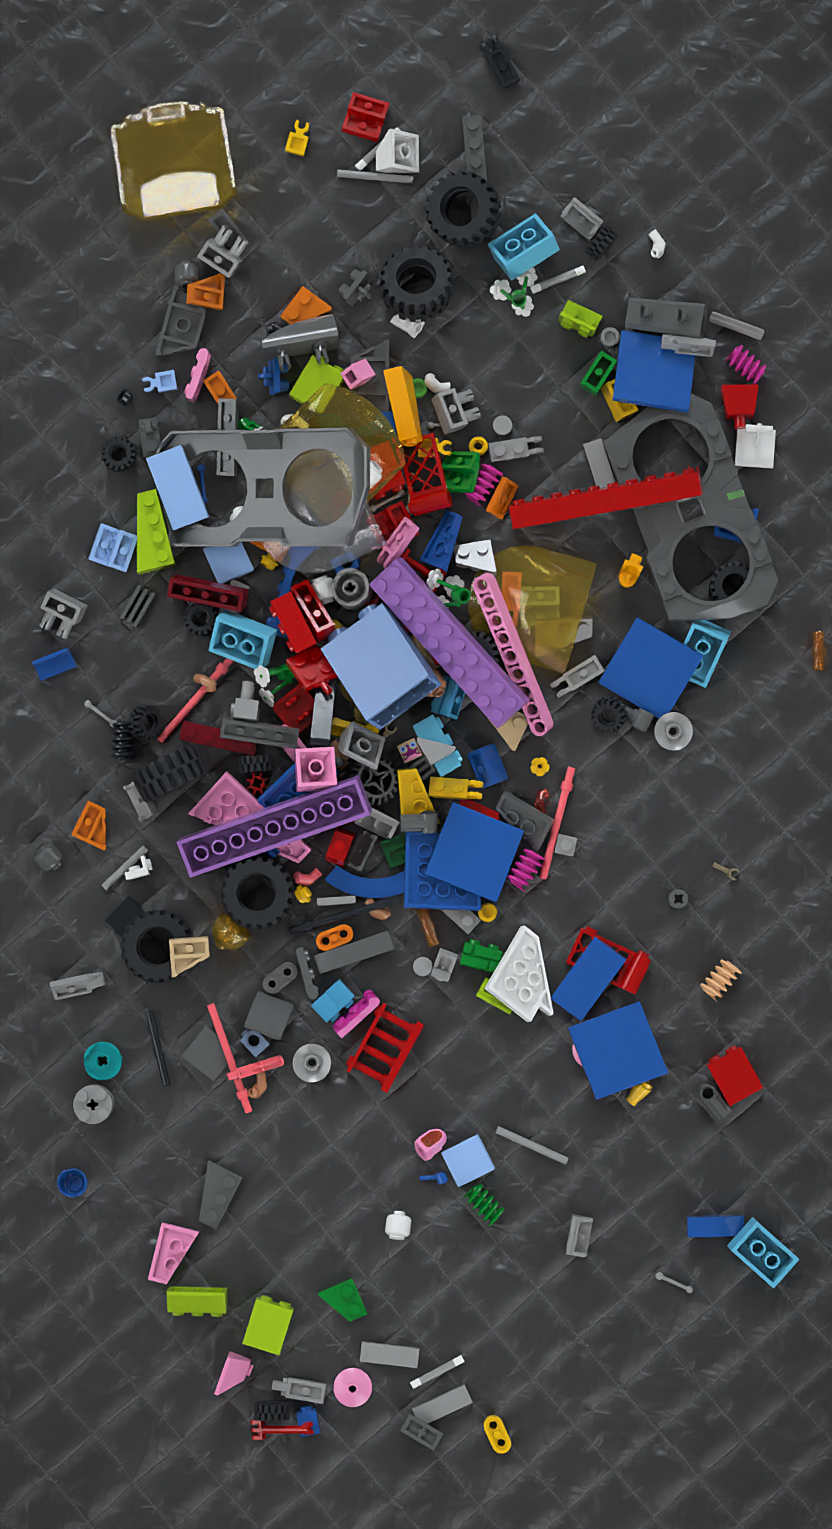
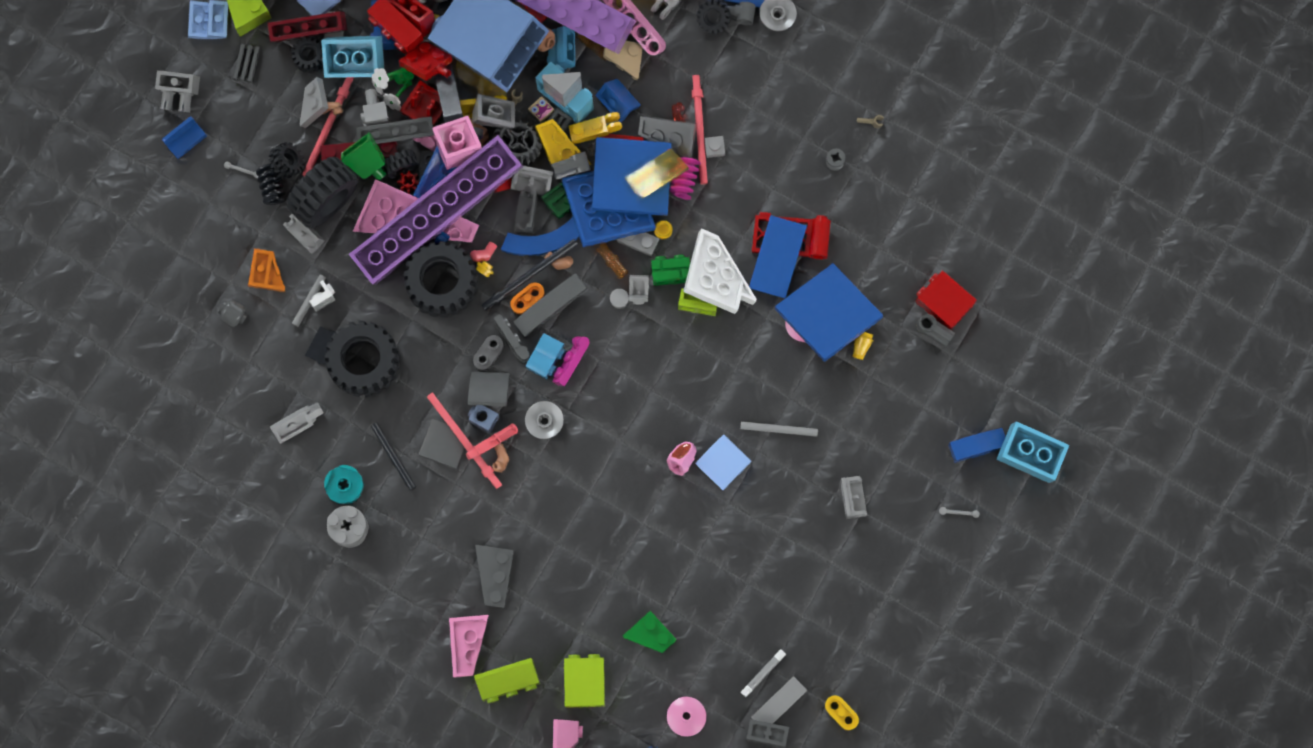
camera: 20 degrees left, 10 degrees down
(72, 1182) = (350, 608): blue hair -> none
(187, 952) = (391, 349): tan wing -> none
(190, 670) = (313, 102): none -> light grey wing
(221, 751) = (365, 158): none -> green torso
(228, 934) = (426, 326): clear yellow cylinder -> none
(301, 1389) = (637, 734): light grey hinge -> none
(336, 900) = (518, 264): light grey tile -> none
(339, 846) = (504, 213): red torso -> none
(389, 1354) = (711, 672): light grey tile -> none
(398, 1225) = (677, 545): white head -> none
(403, 1046) = (622, 394): red fence -> none
(441, 1177) = (703, 487): blue hand -> none
(484, 1203) = (752, 496): green piece -> none
(498, 860) = (656, 173): none -> clear yellow piece
(539, 761) = (666, 89): yellow plate -> none
(720, 979) = (899, 217): light nougat piece -> none

